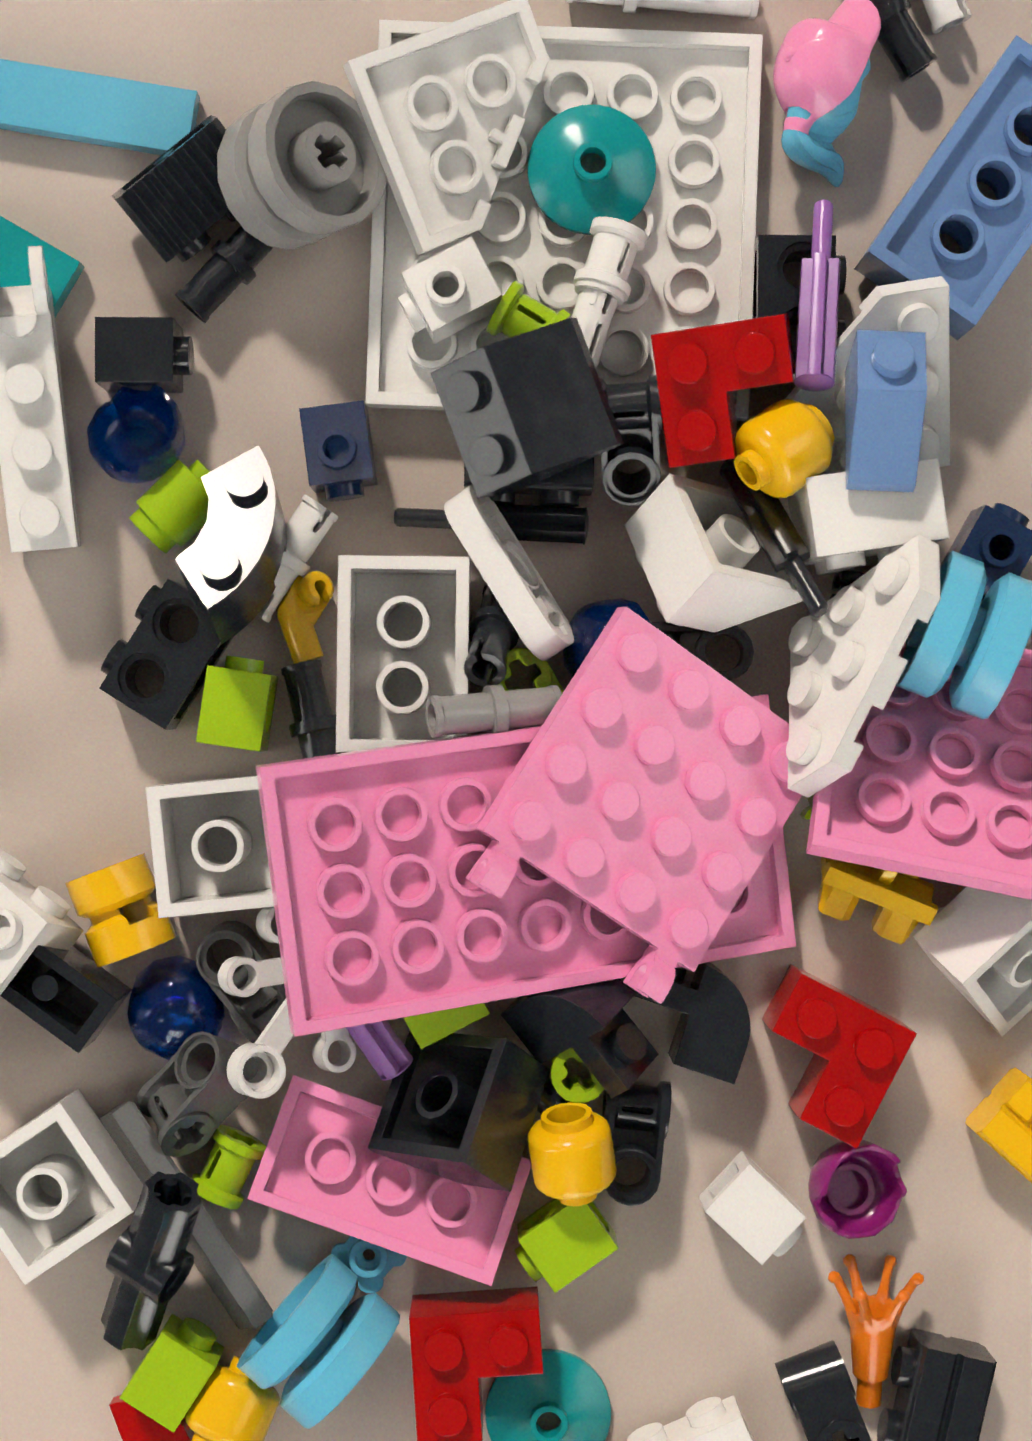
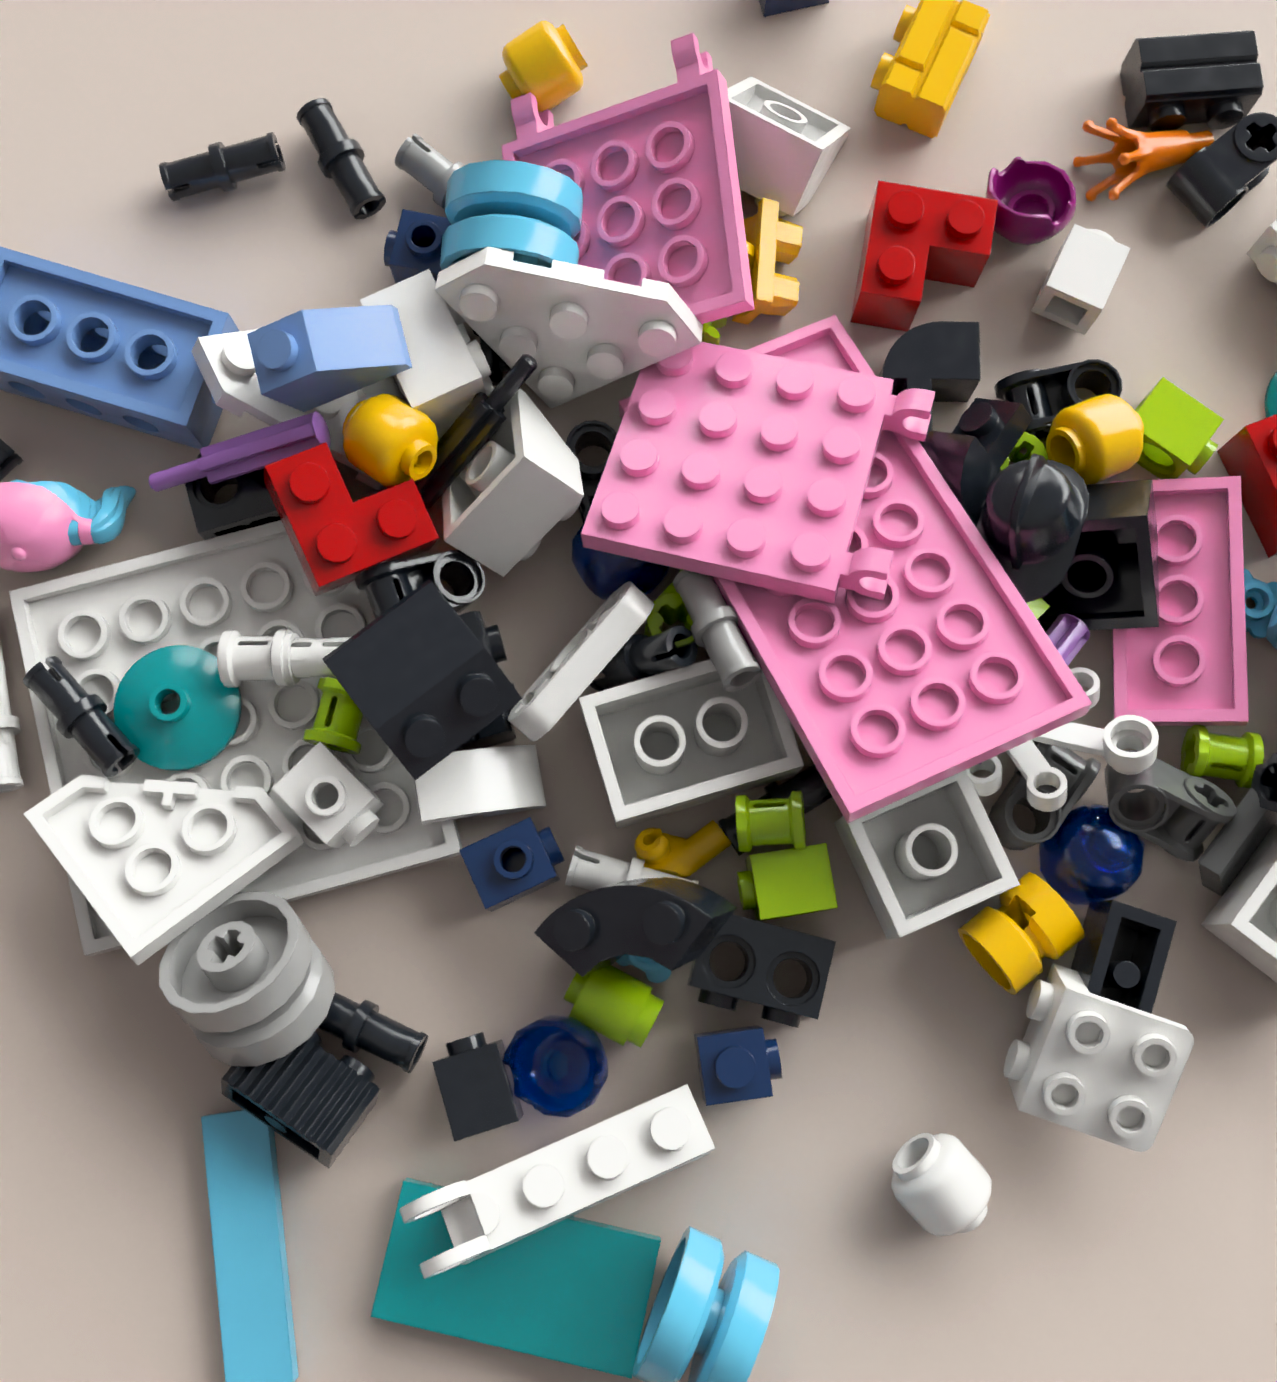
camera: 110 degrees left, 10 degrees down
(85, 600) = (736, 1064): none -> dark blue brick
(294, 704) = (770, 821): none -> lime bush
(421, 444) = (481, 783): none -> white slope
(500, 1056) = (1034, 522): none -> black piece
(525, 521) = (526, 667): black axle -> none
(607, 73) = (81, 716): none -> black pin

